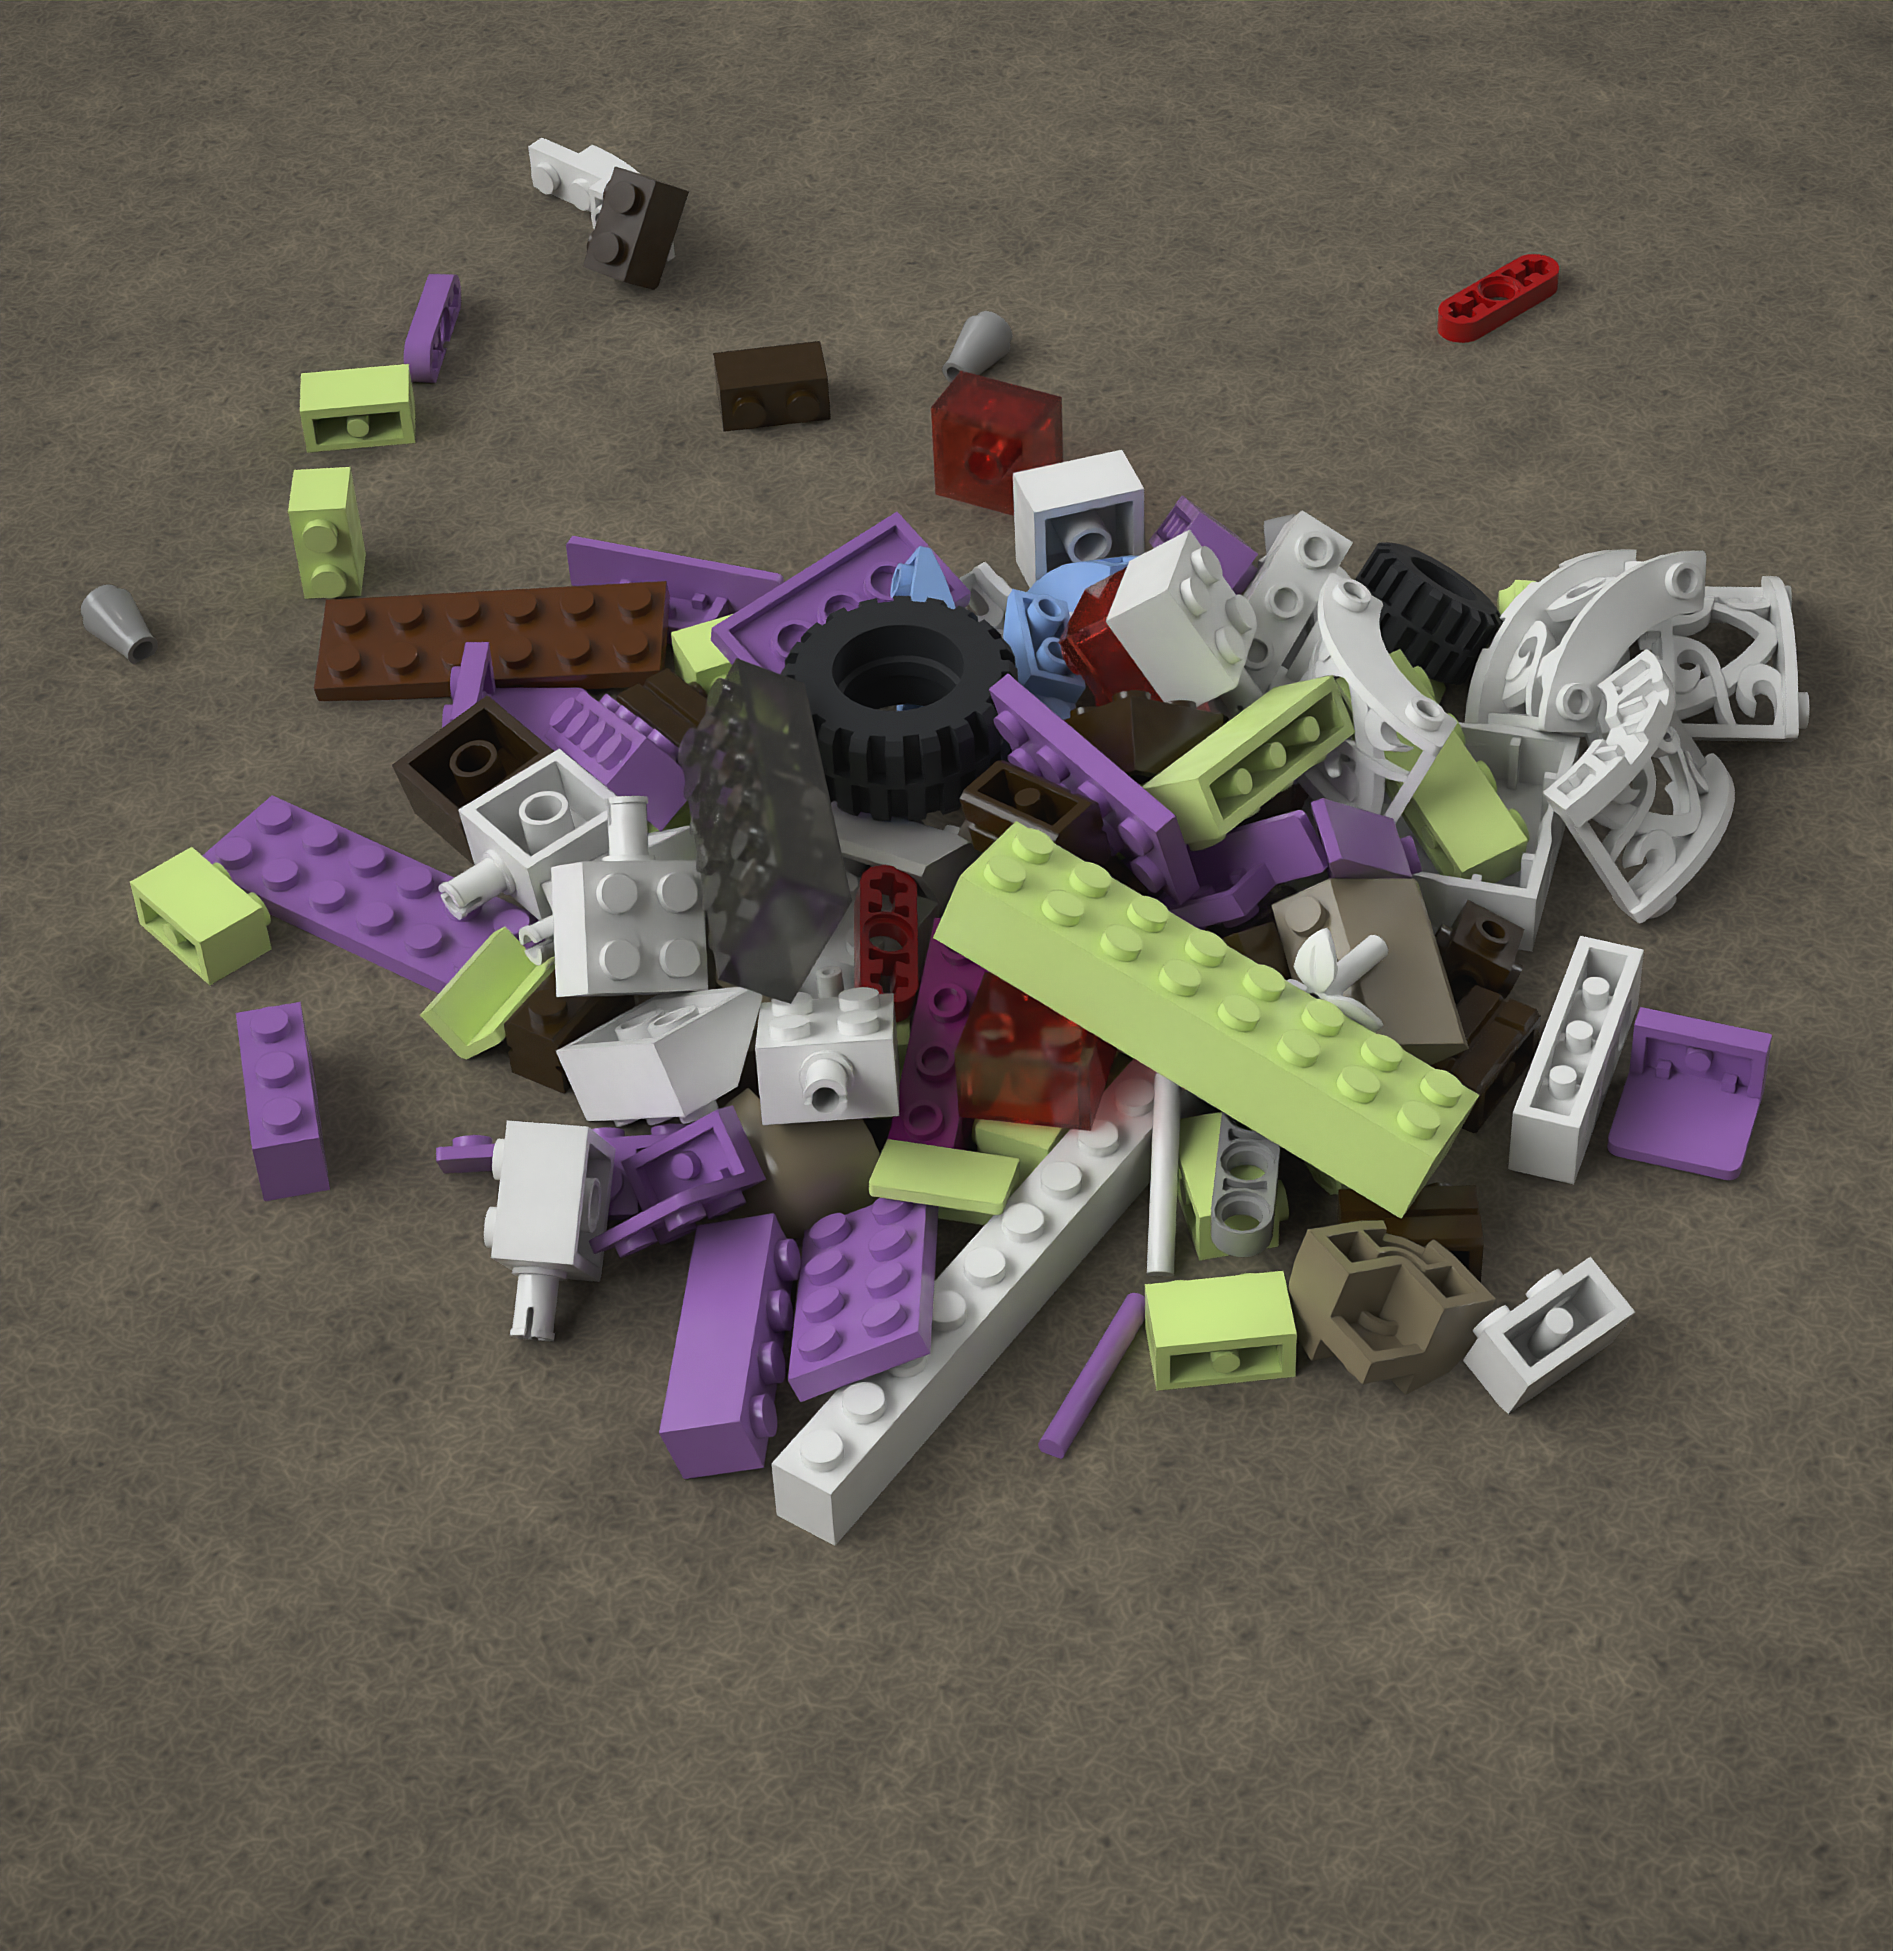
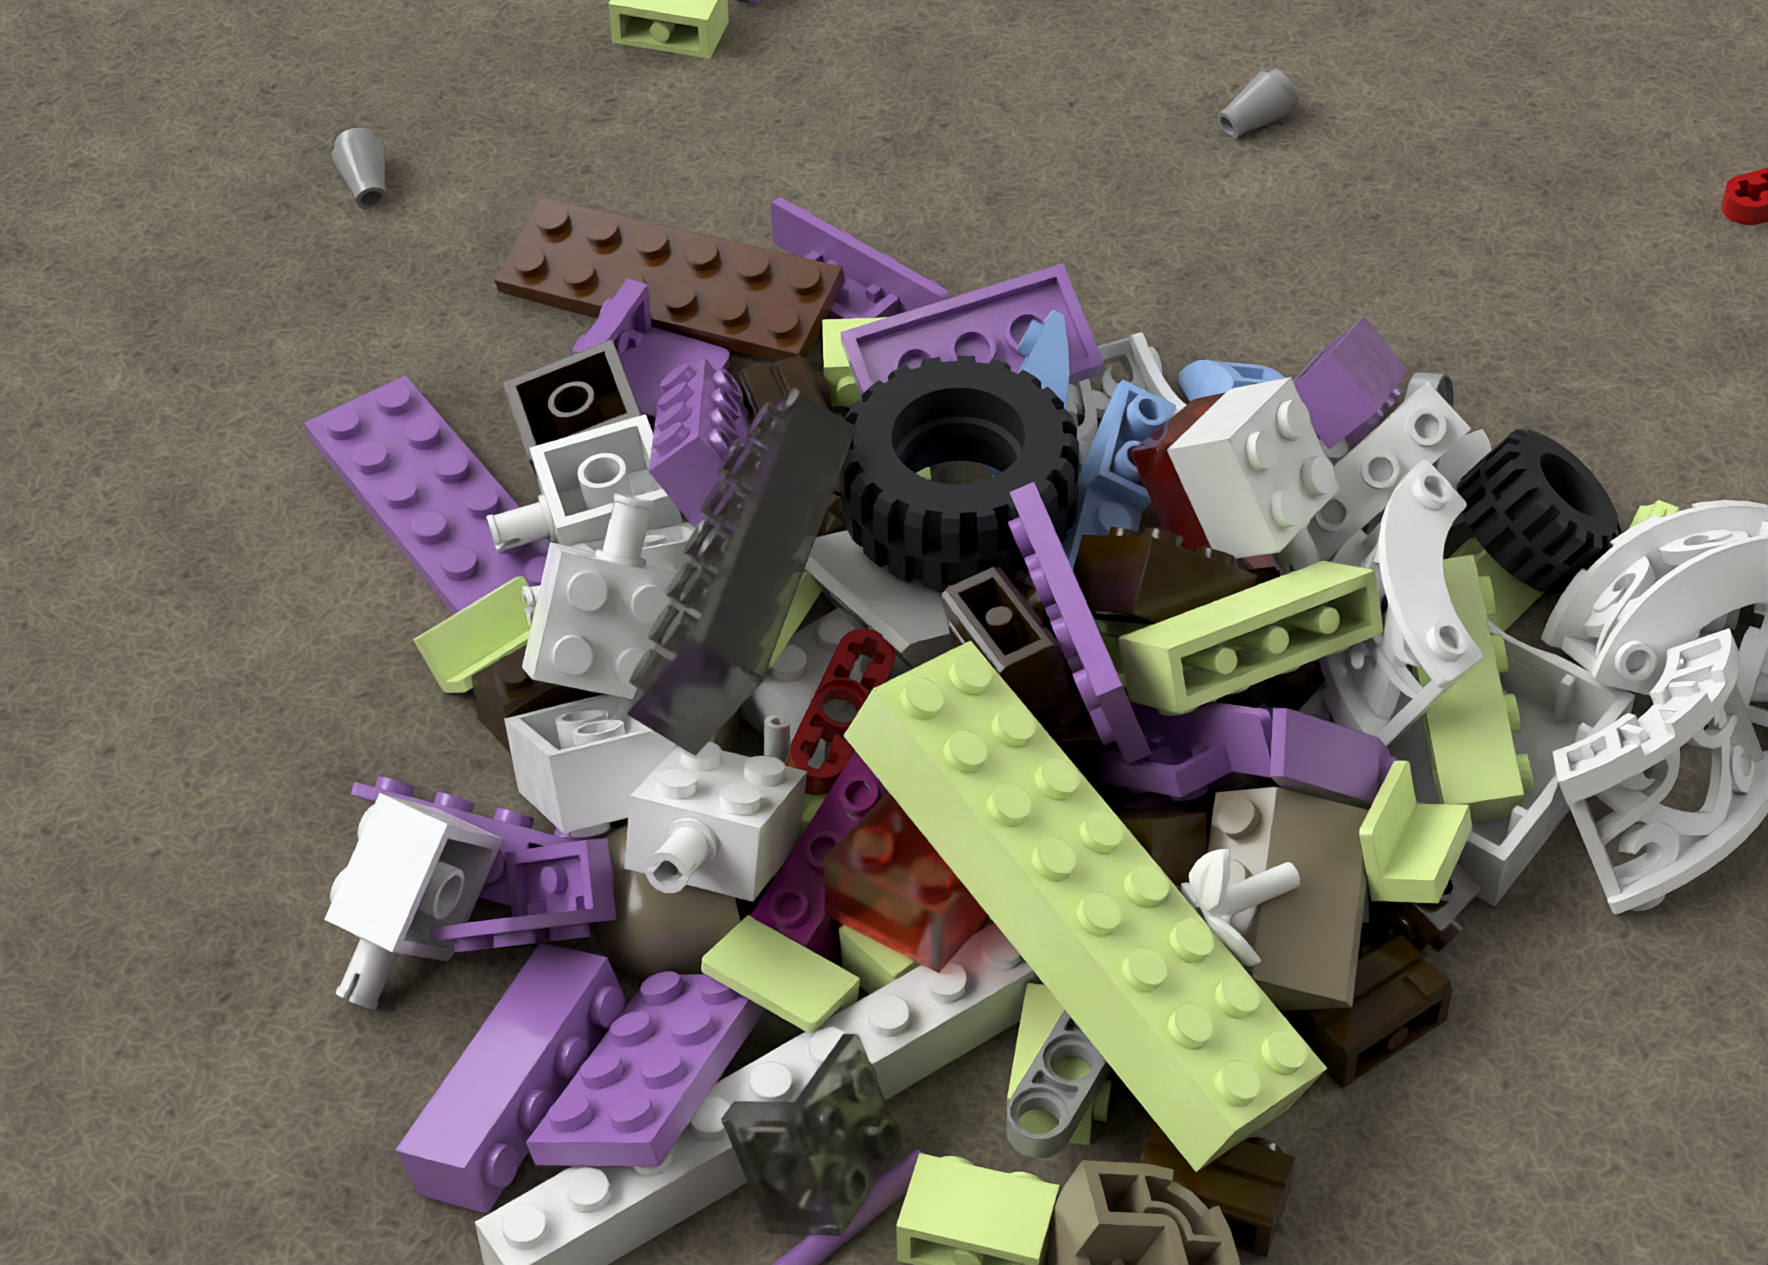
camera: 20 degrees right, 5 degrees up
(202, 915) = (284, 476): yellowish green brick -> none
(282, 1101) = (253, 687): medium lavender brick -> none
(327, 532) = (570, 131): yellowish green brick -> none
(772, 386) = (1047, 91): dark brown brick -> none
(988, 433) = (1218, 213): clear red brick -> none
(1050, 1311) = (821, 1154): none -> clear smoke bracket
(1077, 513) = (1256, 310): white brick -> none
(1164, 1177) = (993, 1050): white bar -> none
(1459, 902) = (1411, 845): none -> yellowish green panel
(1575, 1060) = (1466, 1049): white brick -> none
(1690, 1094) = (1569, 1128): medium lavender bracket -> none

